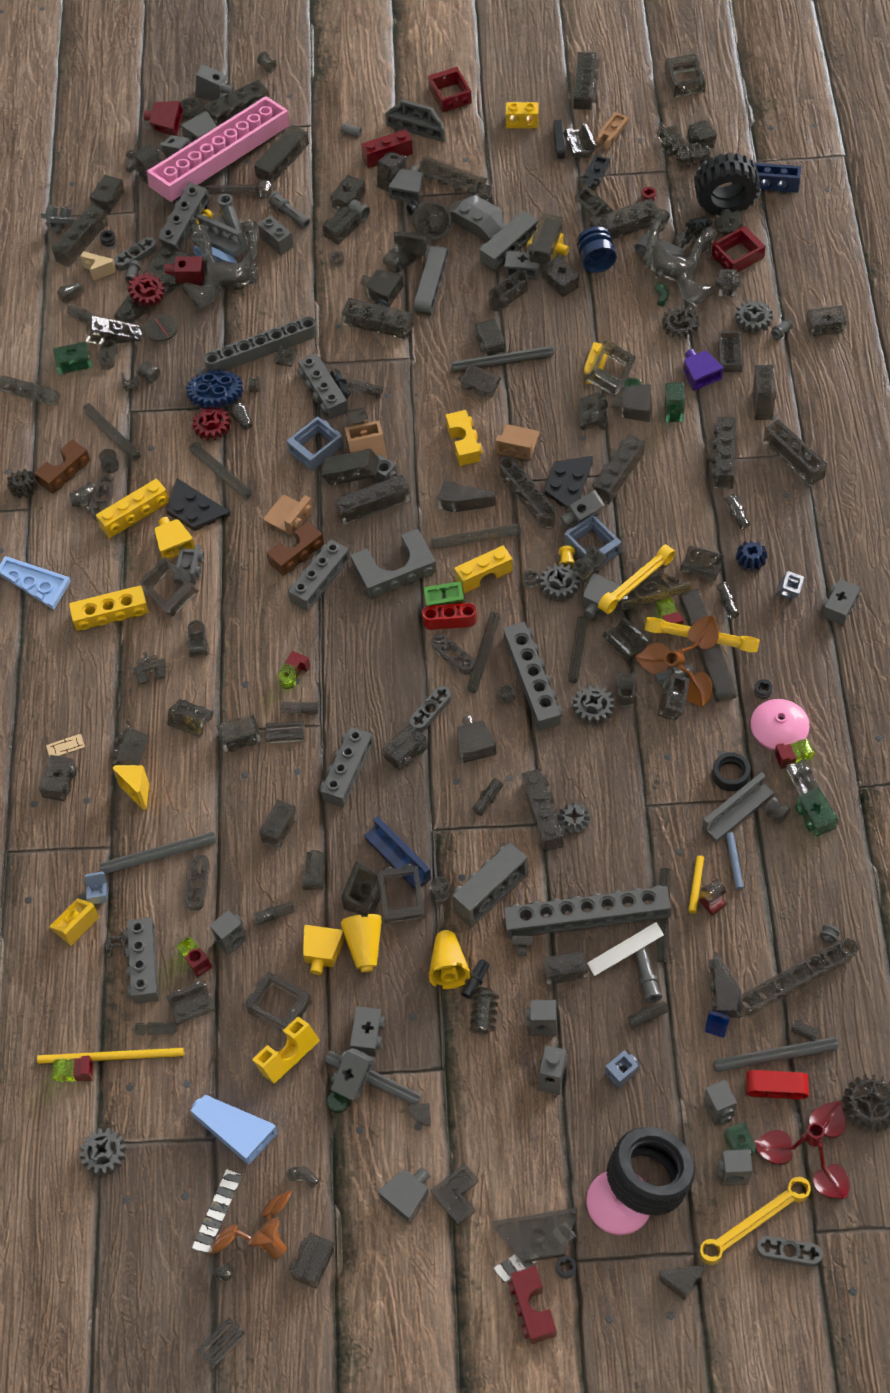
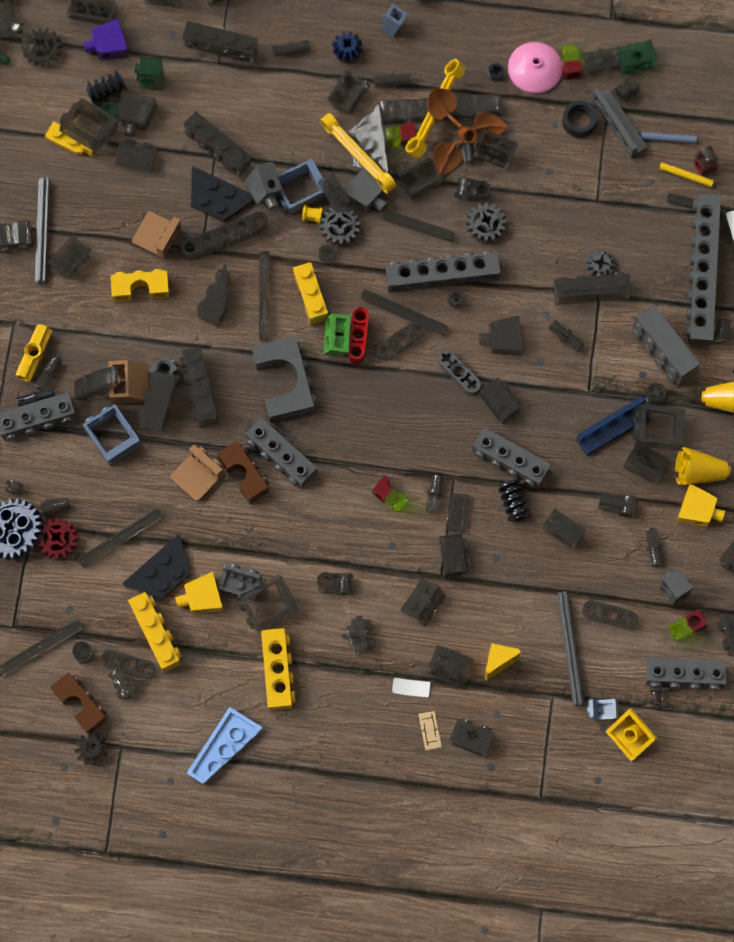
camera: 85 degrees left, 15 degrees up
(106, 722) = (411, 687): none -> white sticker
(301, 774) = (512, 501): none -> black piece
(382, 373) = (30, 363): none -> yellow piece
(652, 374) = (105, 87): none -> black piece

